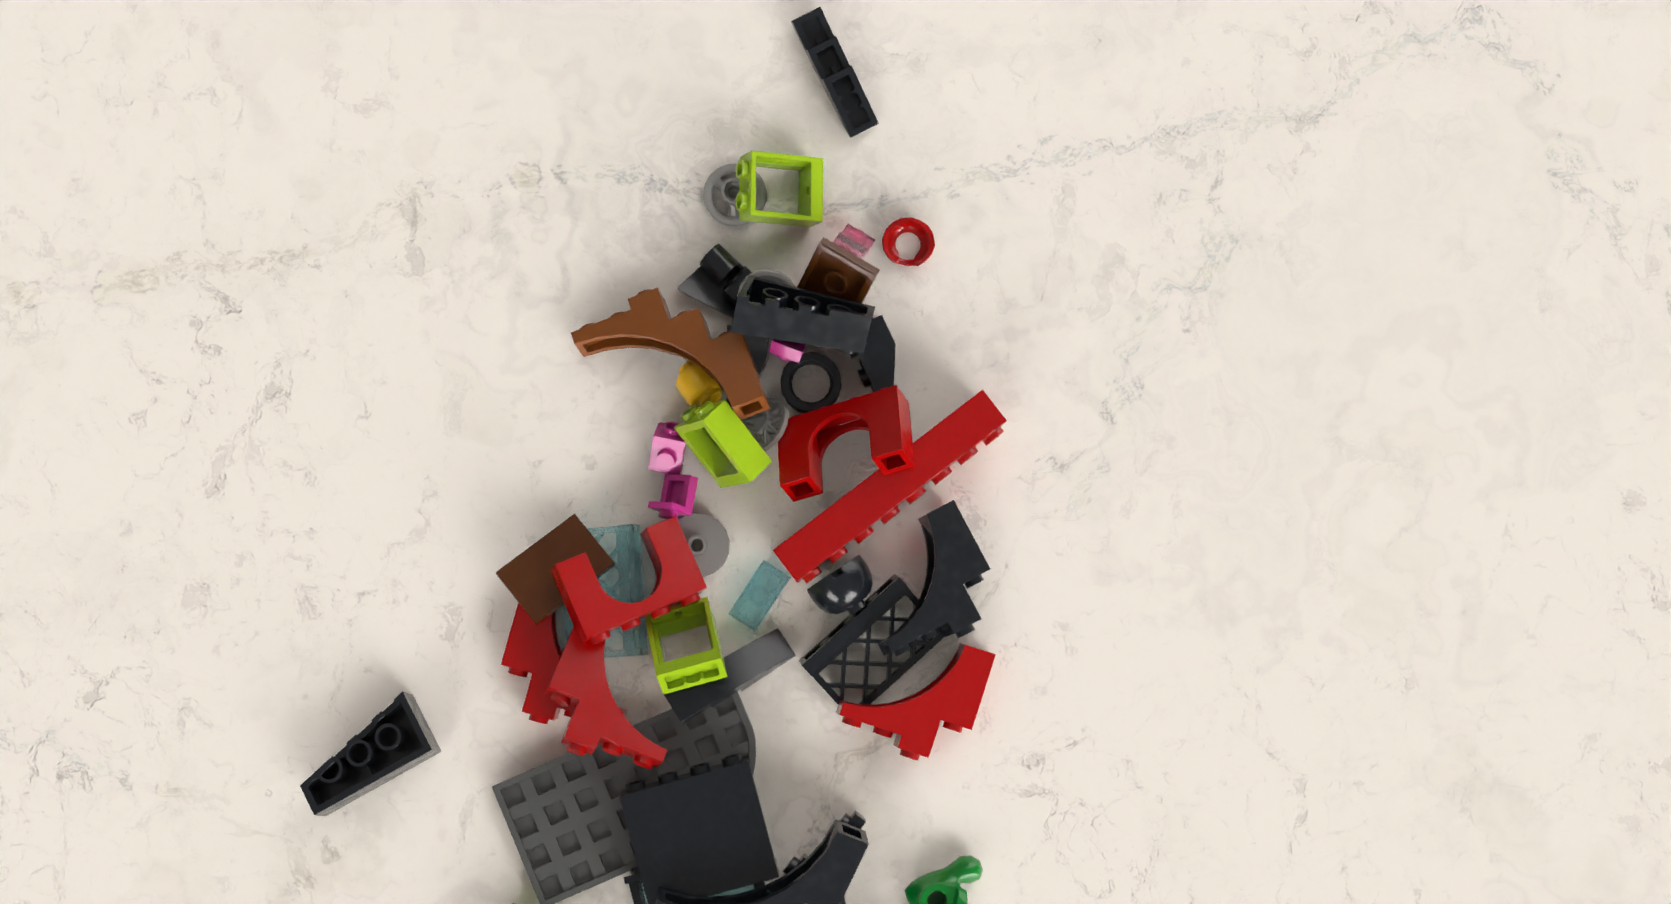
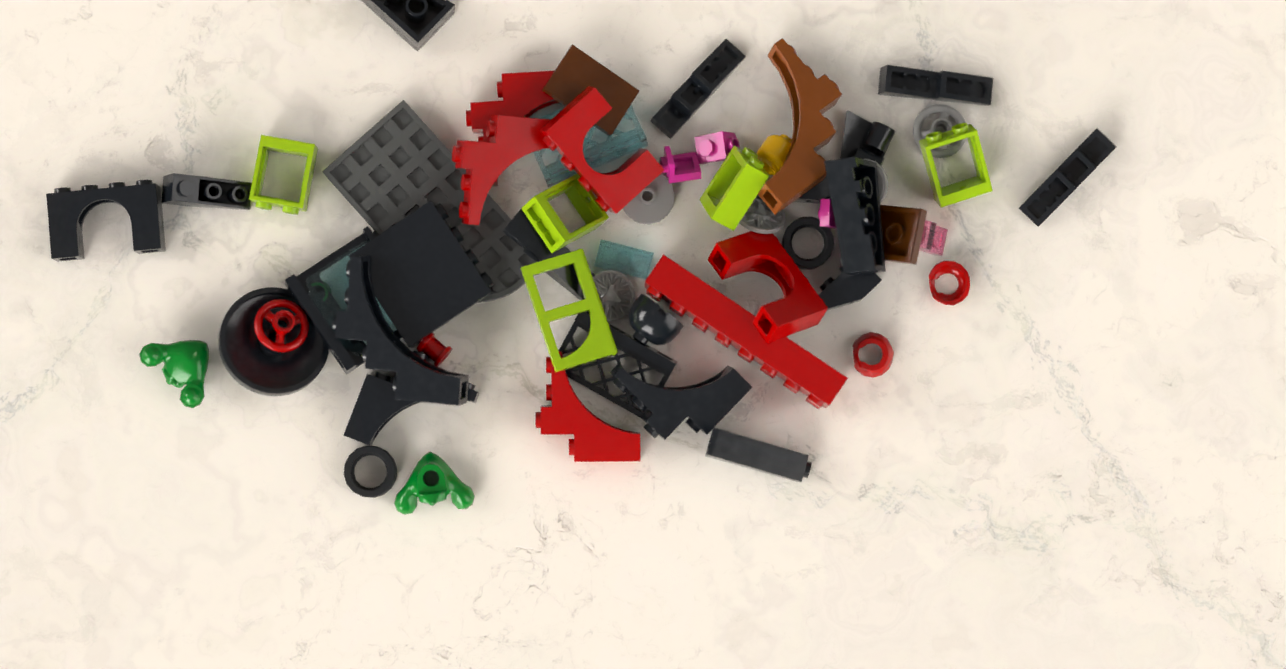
camera: 70 degrees right, 0 degrees up
(594, 446) = (698, 88): none -> black slope
(682, 182) = (935, 85): none -> black slope
(789, 846) = (434, 349): none -> red bush
(795, 625) = (615, 293): none -> light grey wheel
(843, 654) = (599, 340): none -> lime window
(946, 340) = (887, 358): none -> red piece
(1032, 520) = (758, 455): none -> black slope

